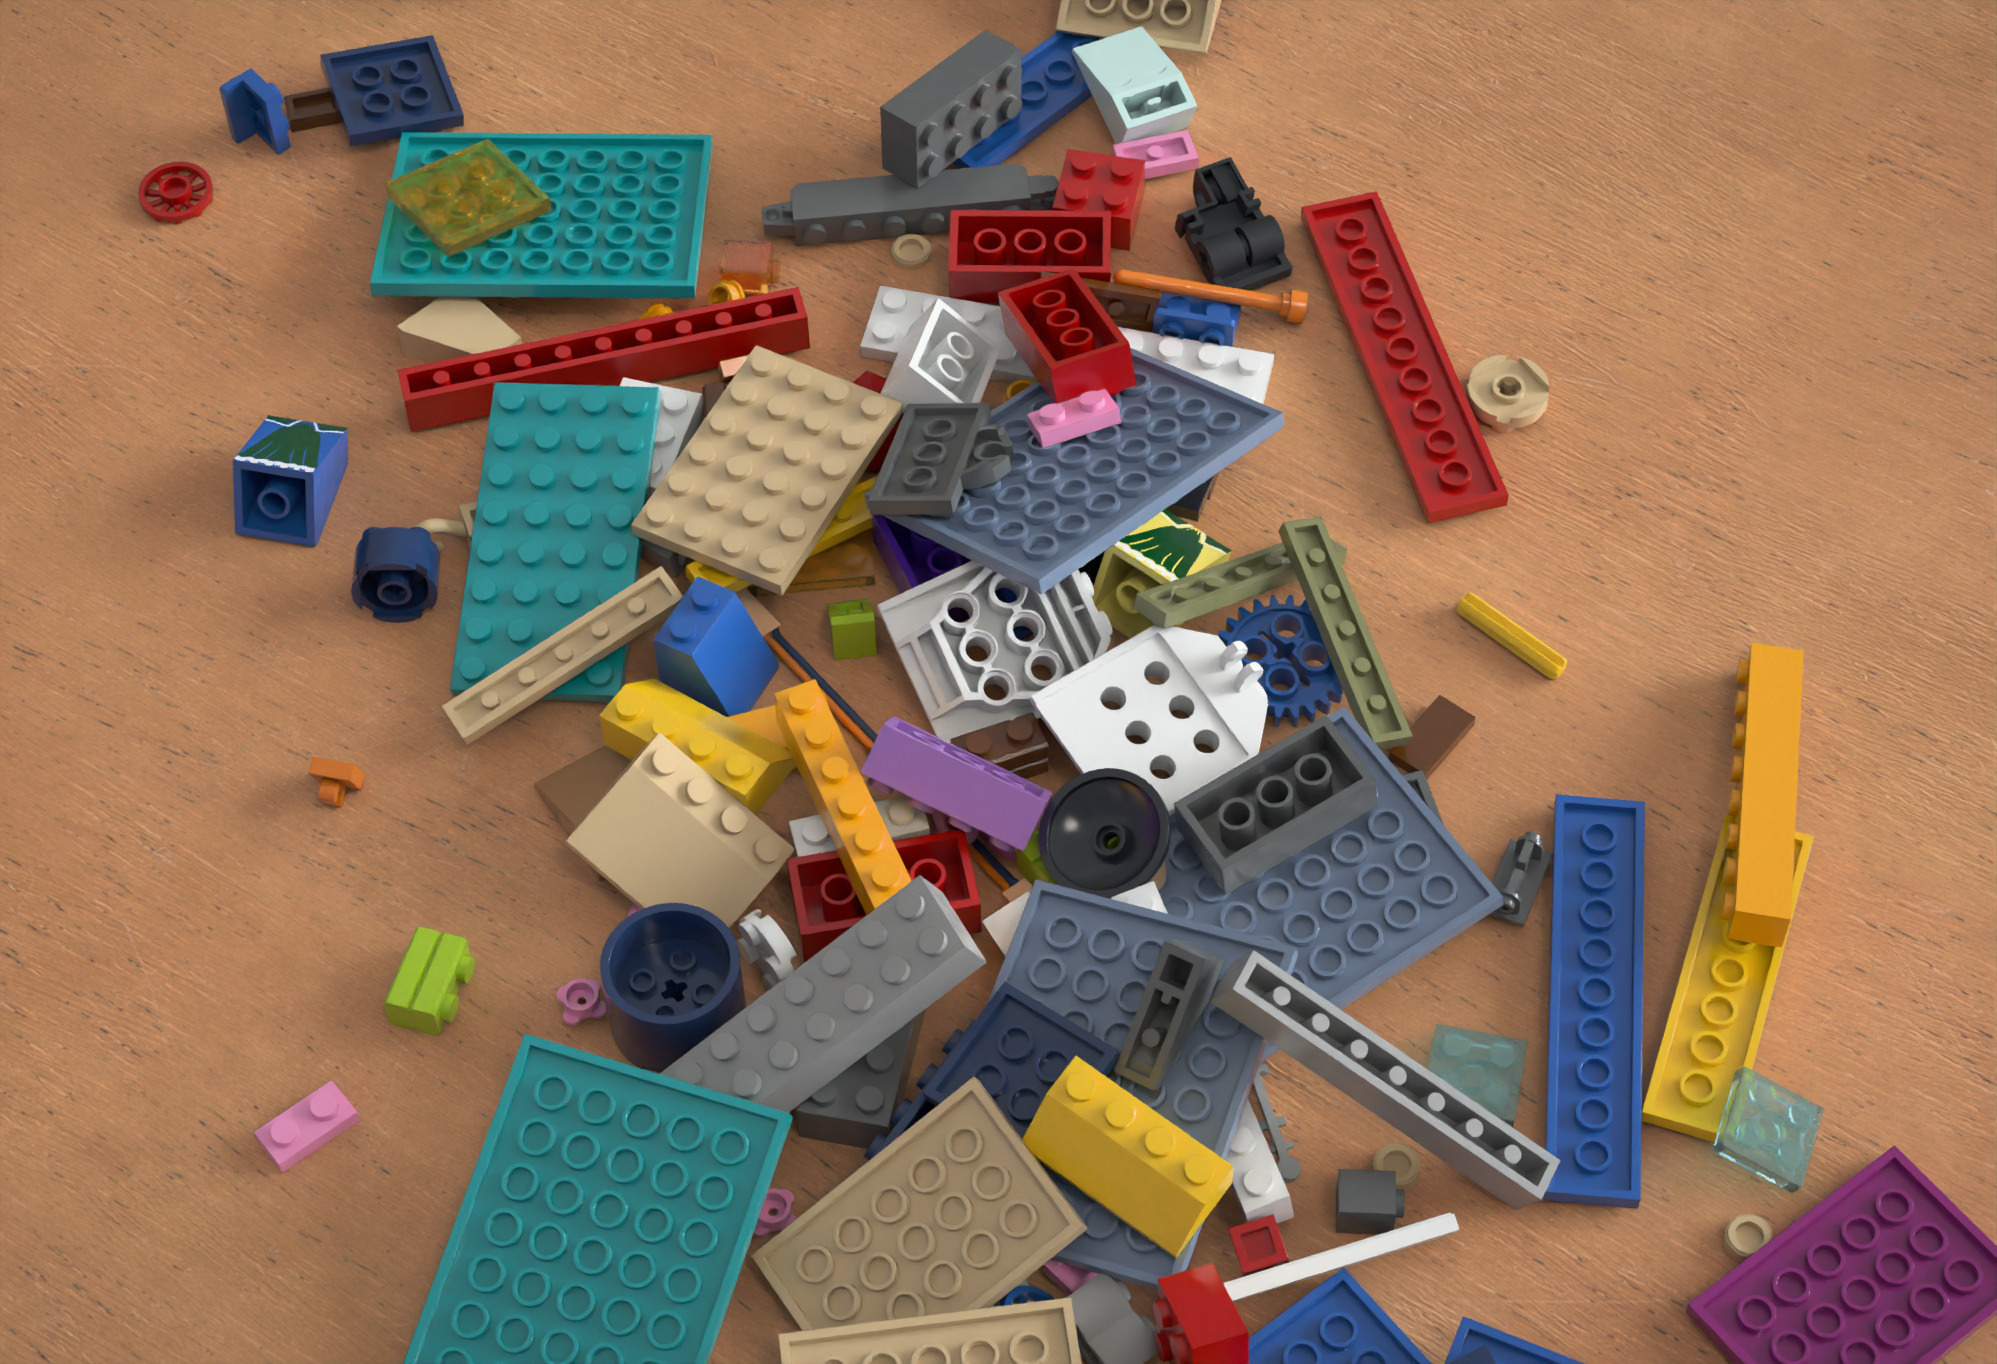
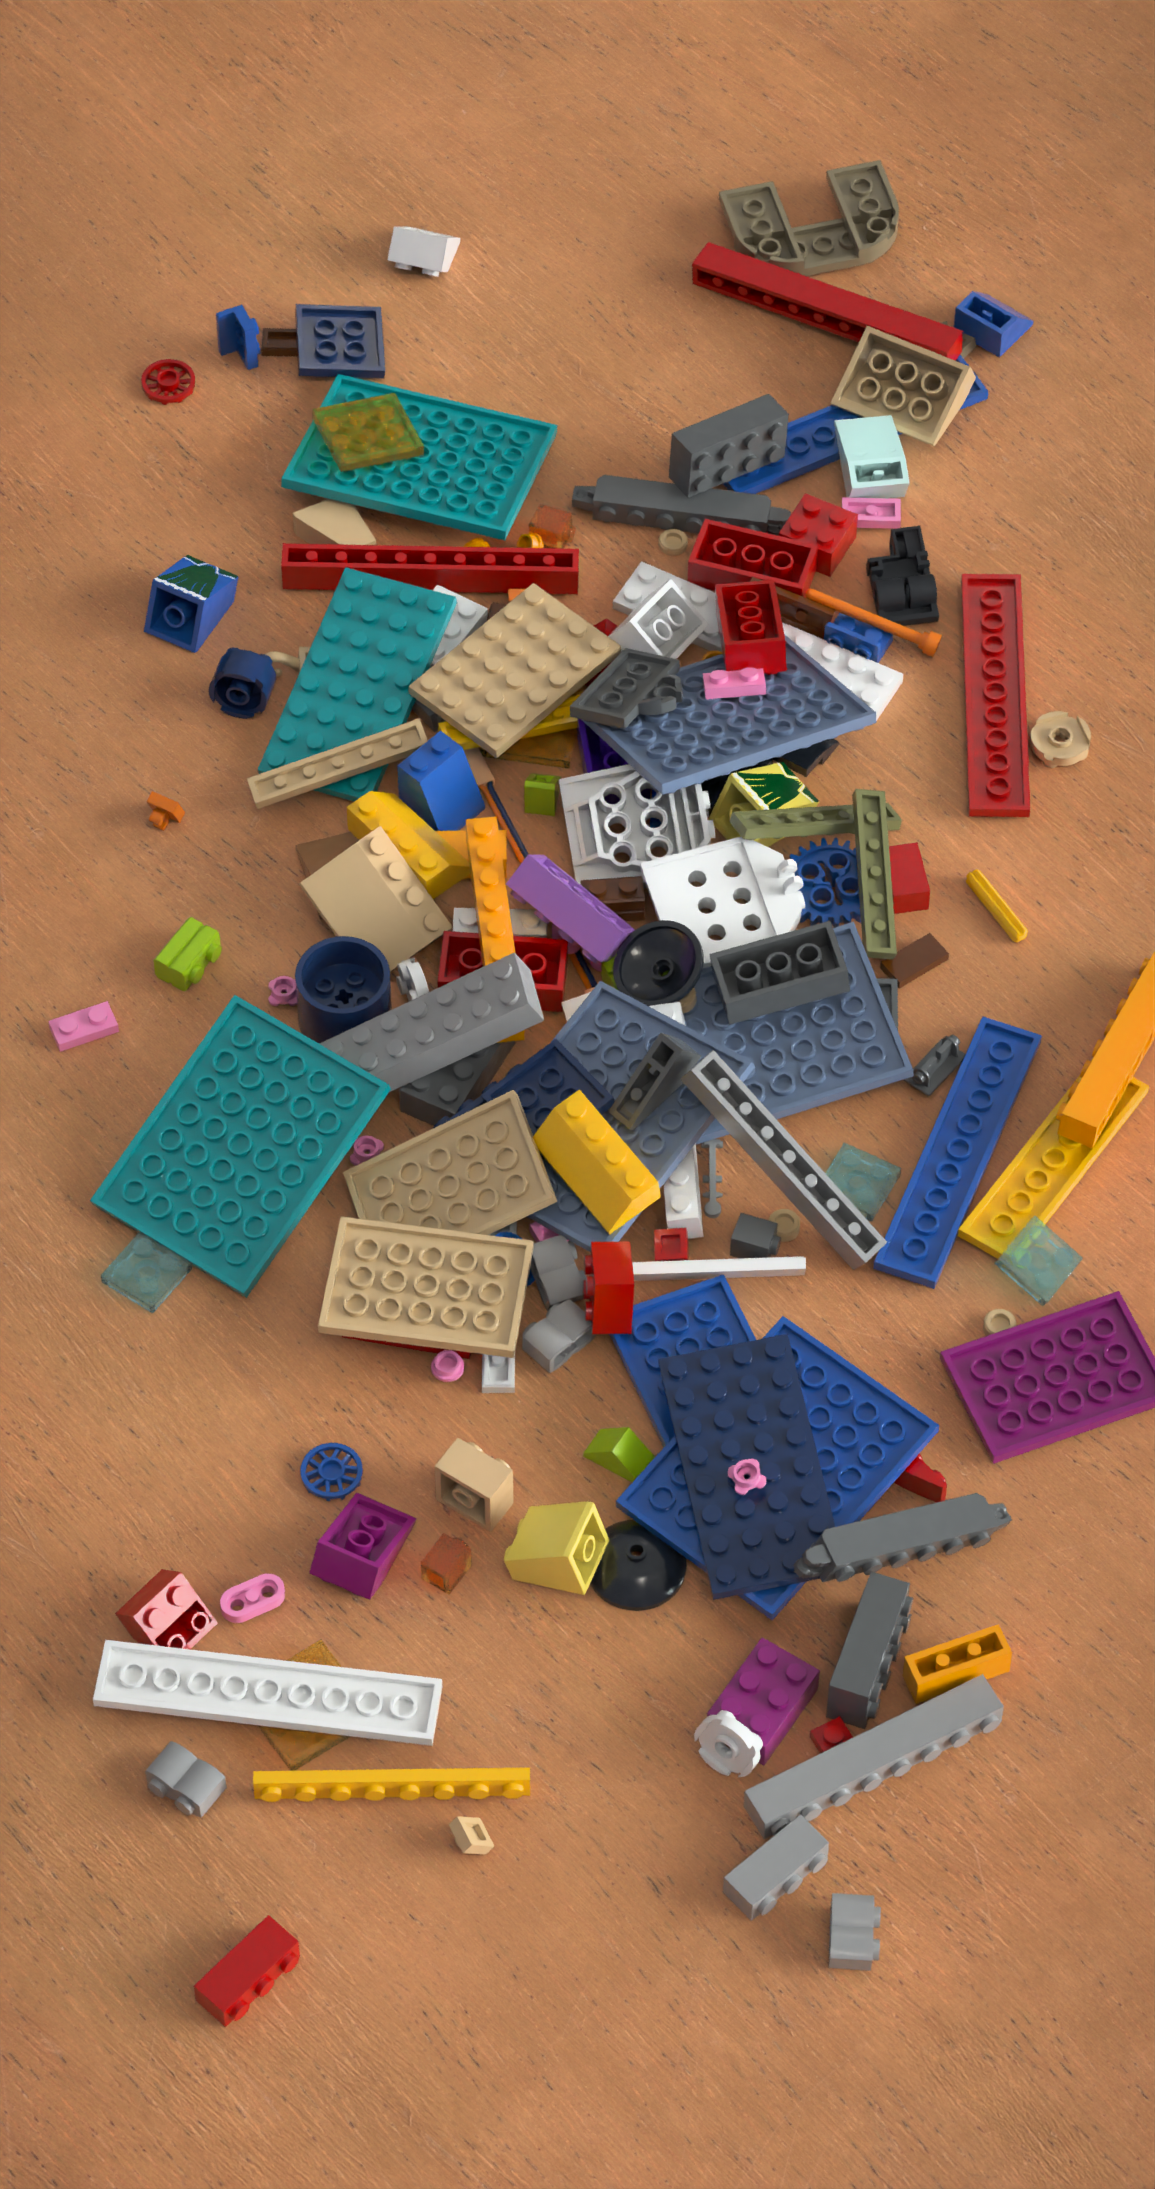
camera: 15 degrees right, 0 degrees up
(1390, 625) = (908, 879): none -> red brick

